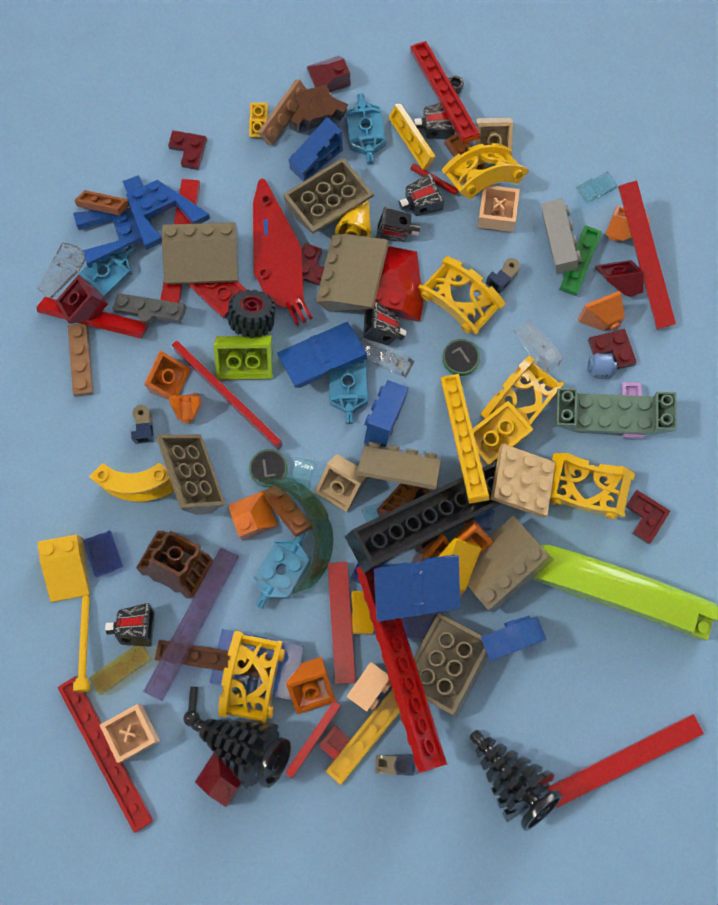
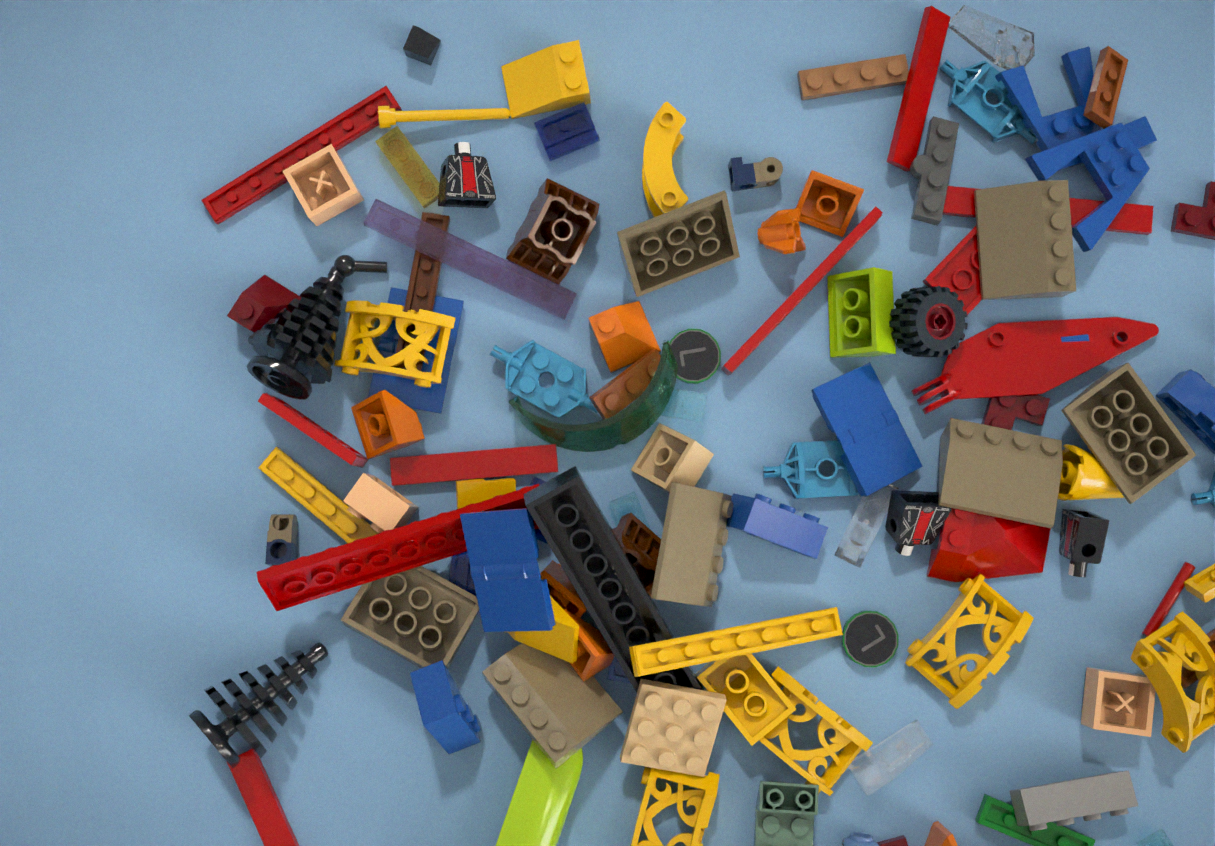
camera: 90 degrees right, 10 degrees up
(29, 660) = (421, 45): none -> black slope
(80, 301) = (941, 69): dark red slope -> none
(334, 742) = (312, 457): red panel -> none
(422, 196) = (1135, 581): black torso -> none
(504, 276) = (1003, 709): leg -> none

